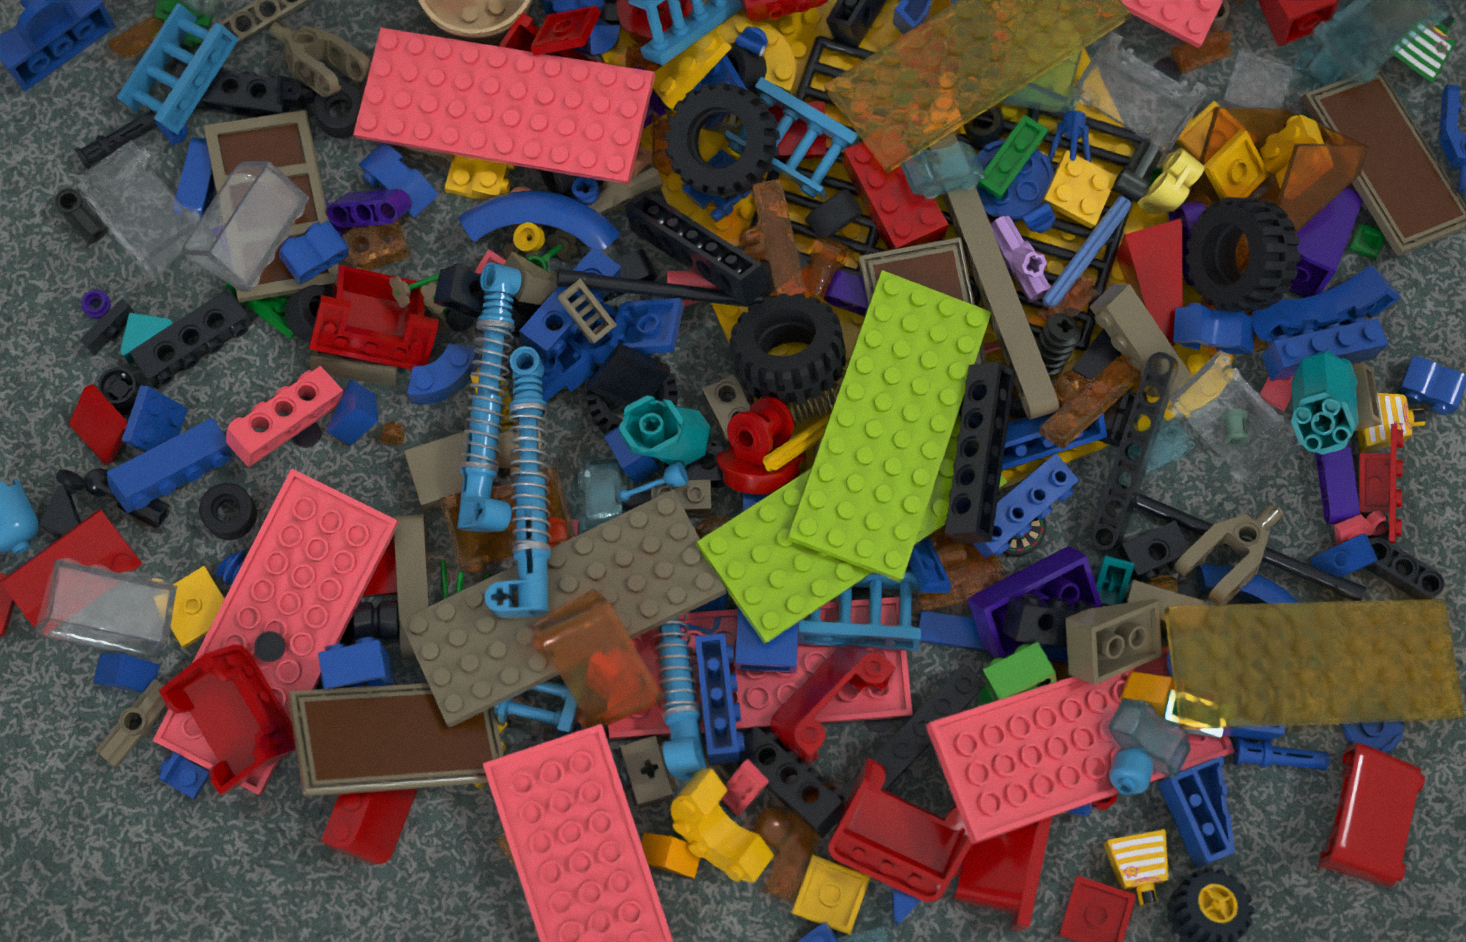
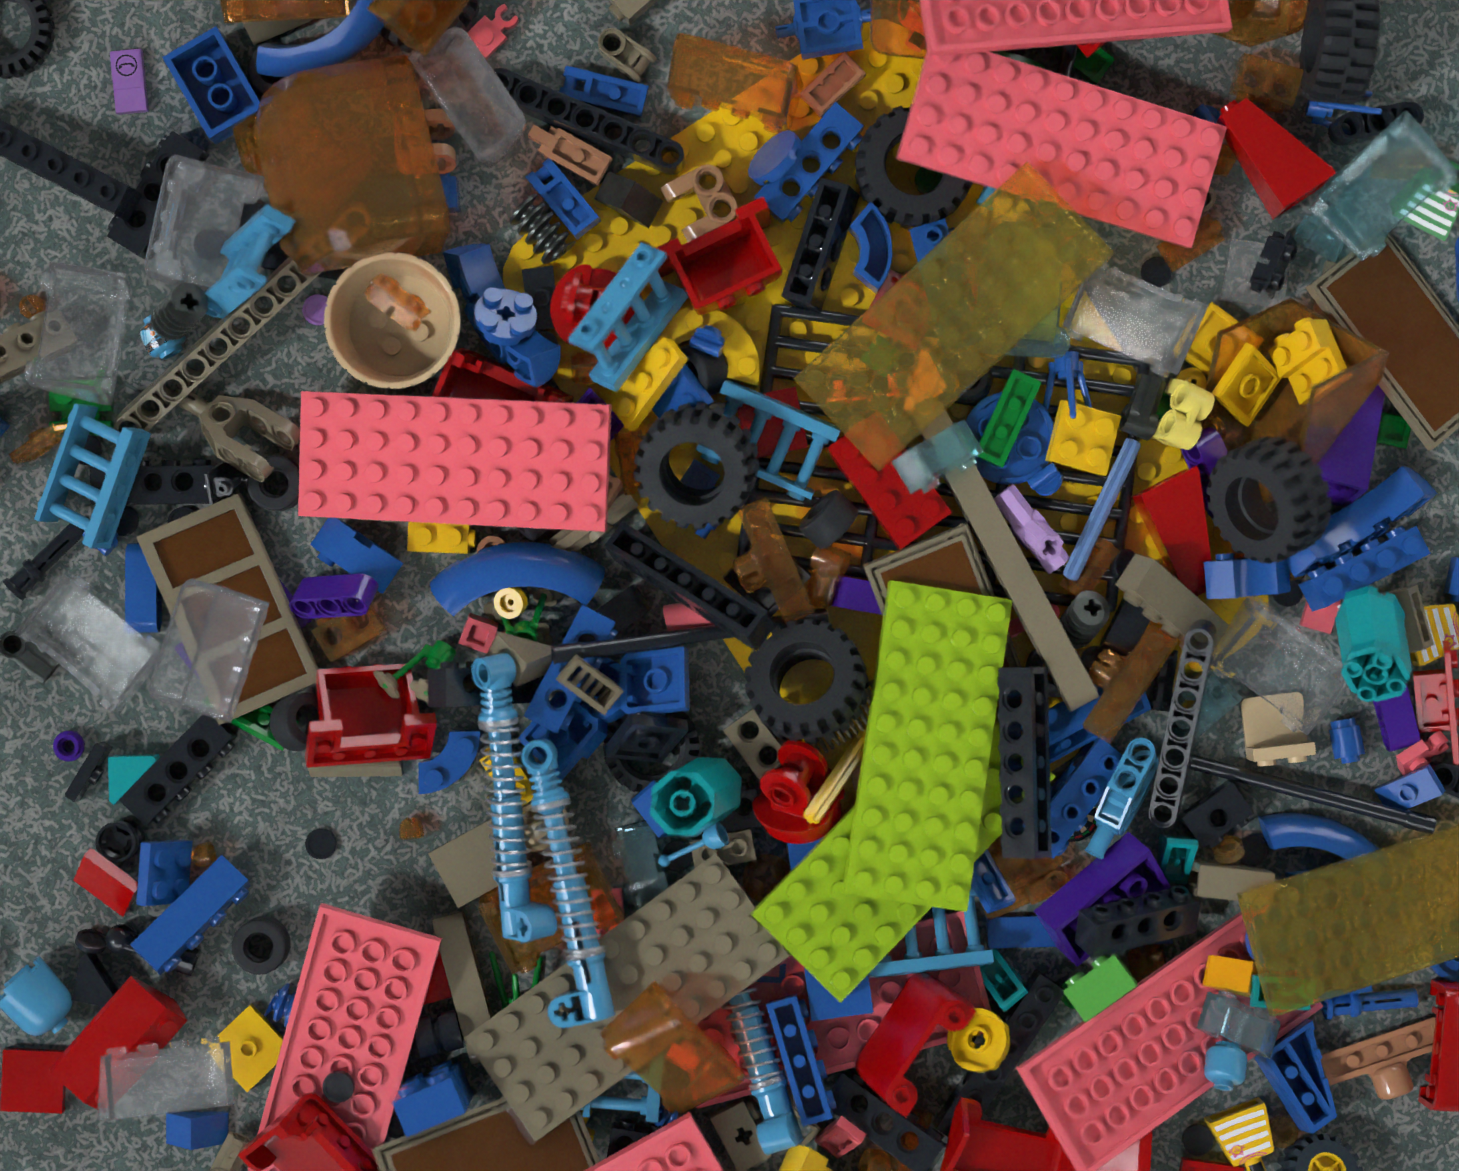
camera: 10 degrees left, 15 degrees up
(194, 418) = (204, 854): none -> clear orange hinge
(196, 121) = (128, 522): none -> black piece
(254, 445) = (272, 883): coral brick -> none
(313, 252) = (286, 659): blue brick -> none
(354, 414) = (367, 817): blue slope -> none
(565, 30) = (504, 368): red tile -> none
(587, 198) = (566, 542): blue bush -> none
(900, 727) = (988, 1055): none -> yellow plate
(926, 669) = (1003, 981): none -> teal slope
(1058, 520) = (1120, 804): none -> dark azure piece
(1094, 863) = (1198, 1139): none -> black piece
(1112, 639) = (1188, 935): dark tan slope -> none
(1179, 869) = (1283, 1131): none -> clear orange tile
(1216, 489) = (1268, 737): none -> tan bracket
(1229, 533) = (1292, 789): dark tan piece -> none
(1235, 427) = (1282, 672): sand green bush -> none
(1250, 366) = (1289, 598): none -> black piece
(1280, 65) = (1280, 253): none -> black hinge
(1286, 813) = (1382, 1058): none -> nougat plate
(1291, 501) = (1346, 740): none -> blue brick

